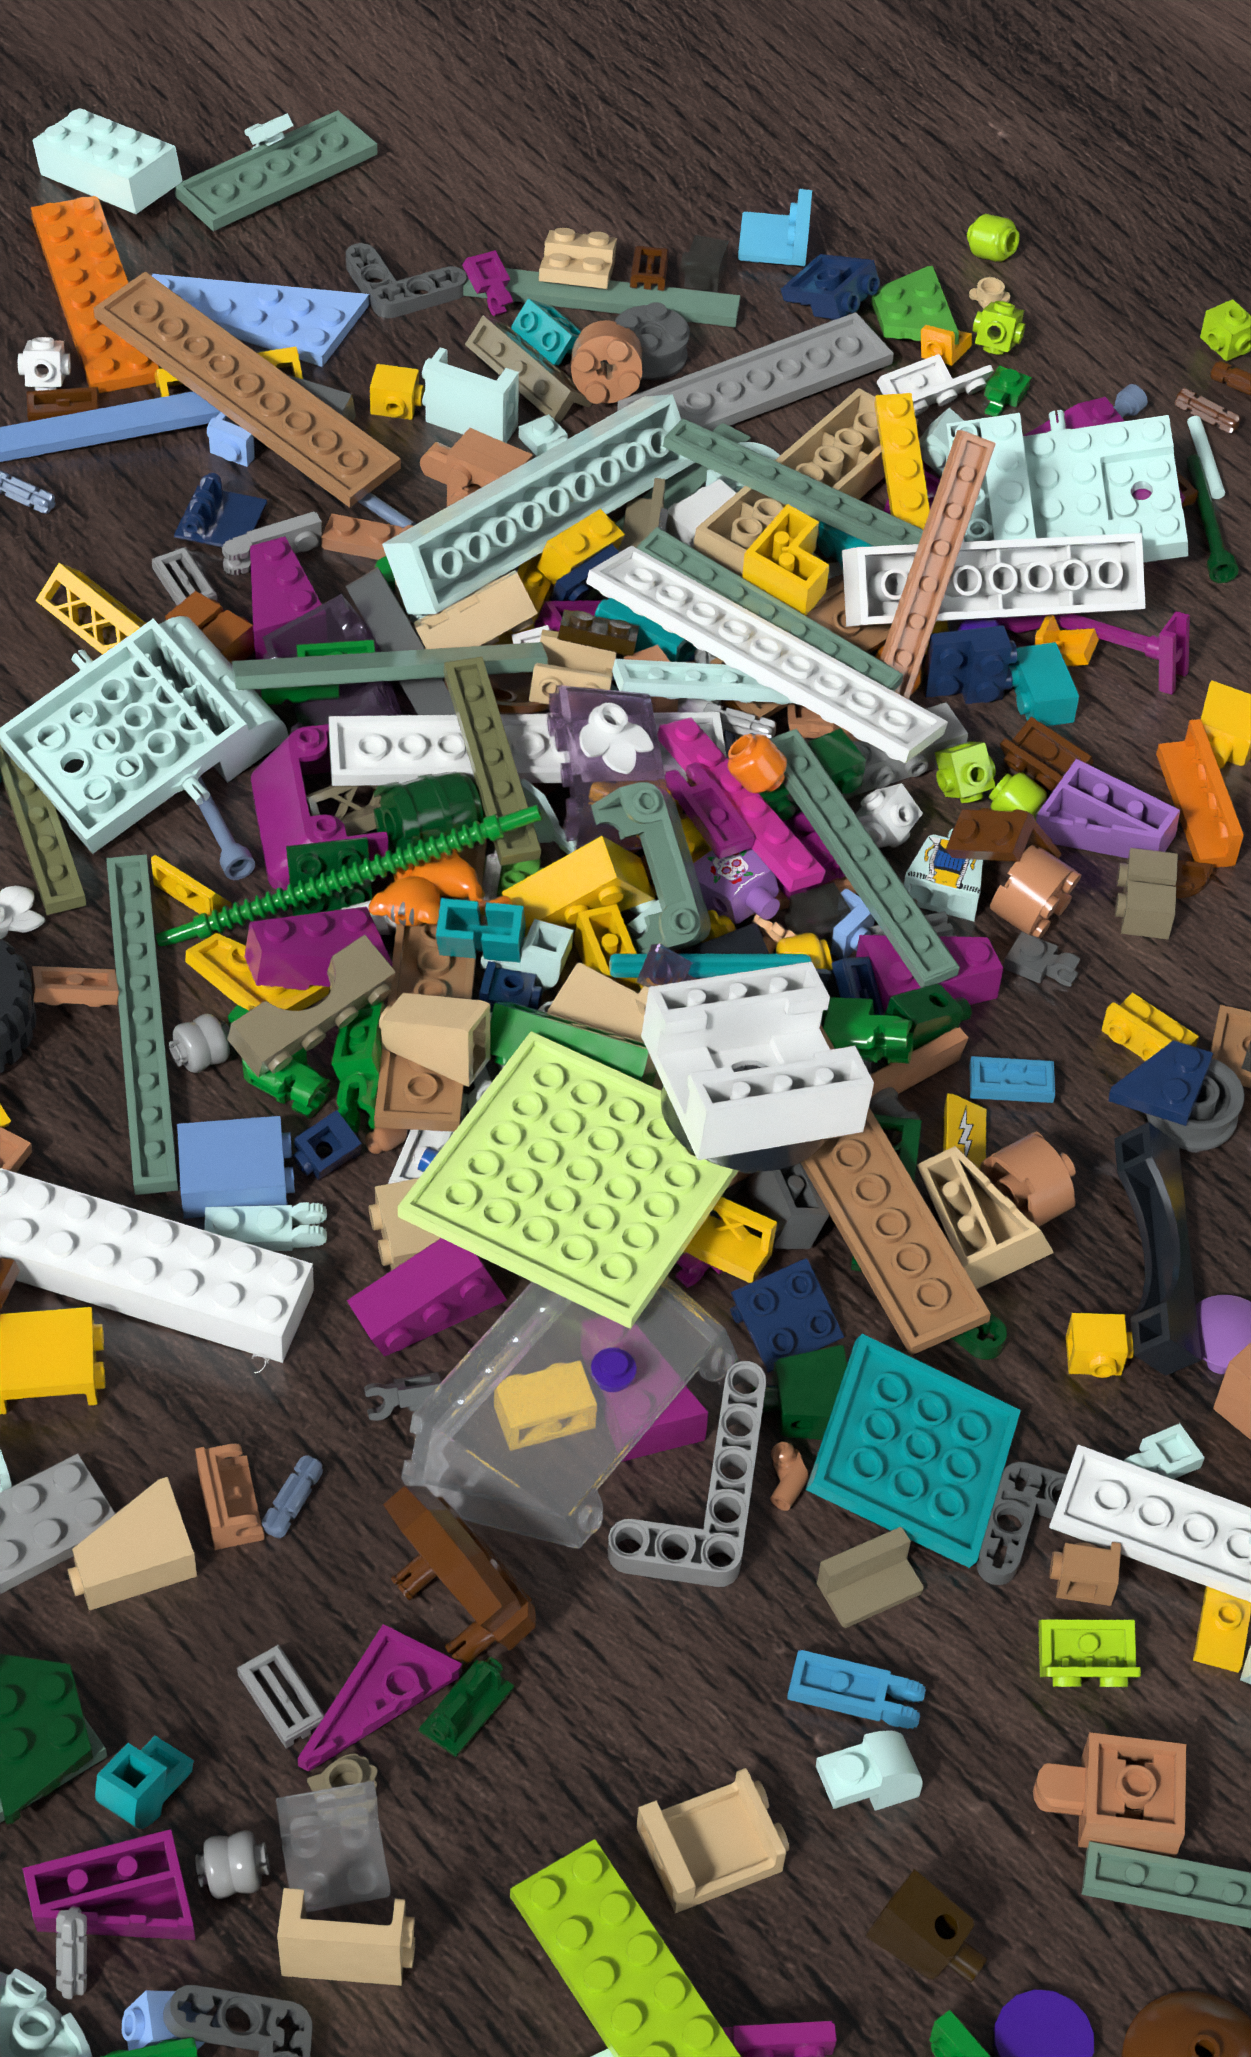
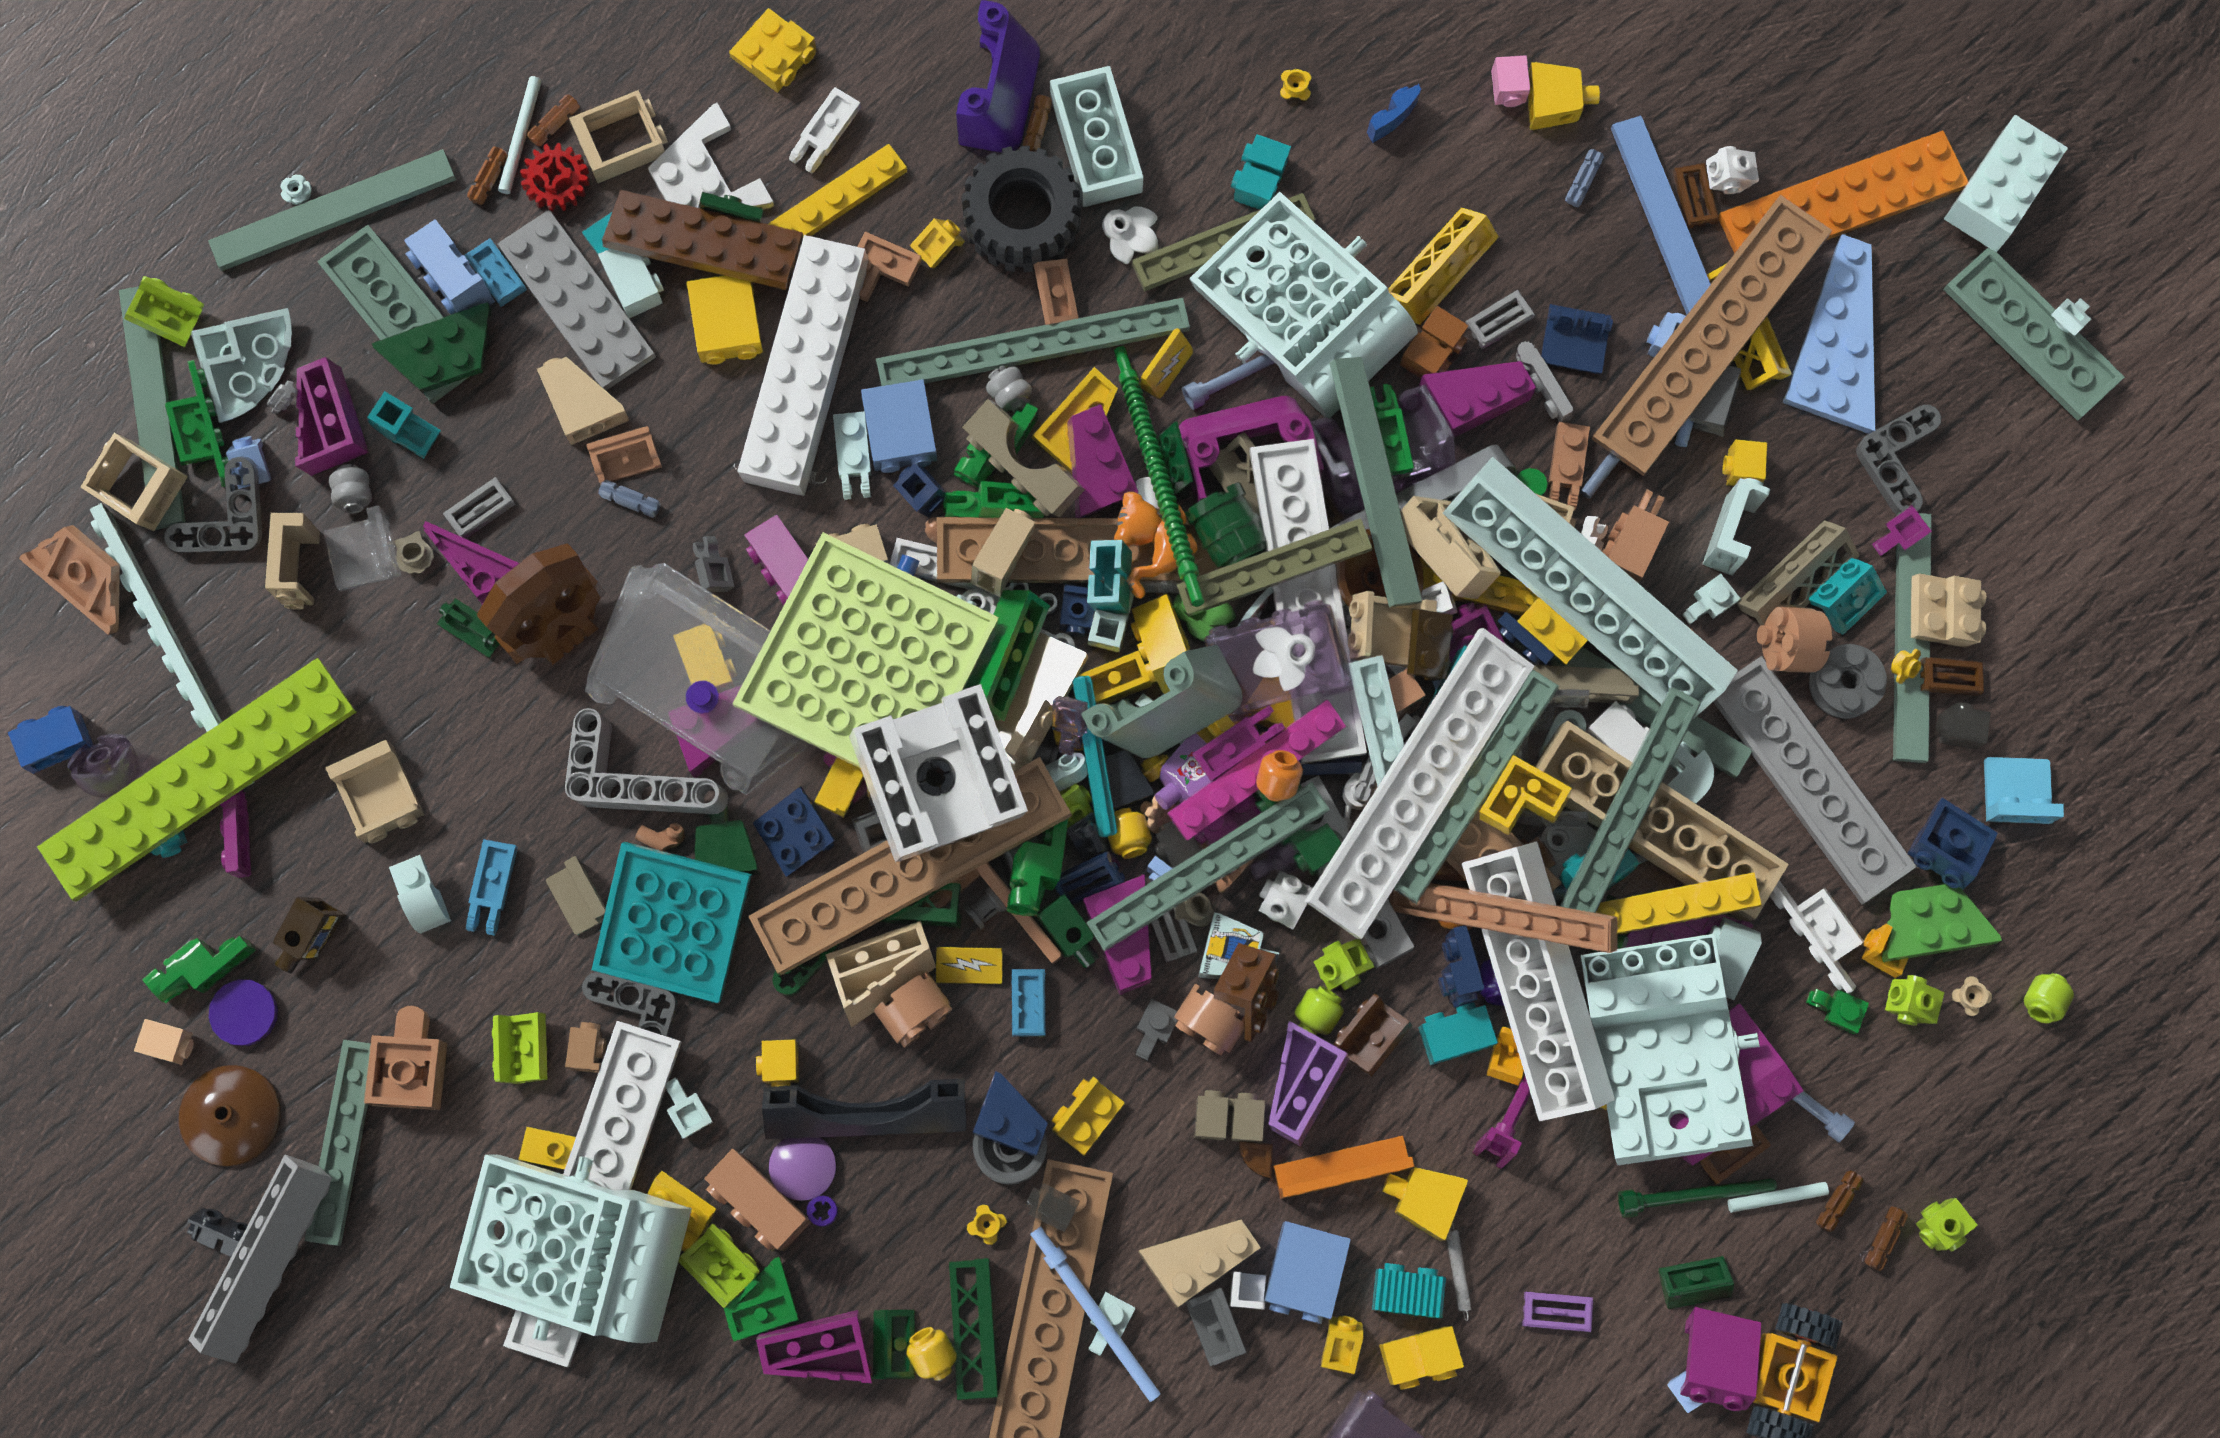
camera: 85 degrees right, 25 degrees up
(639, 289) = (1906, 665): none -> yellow plate

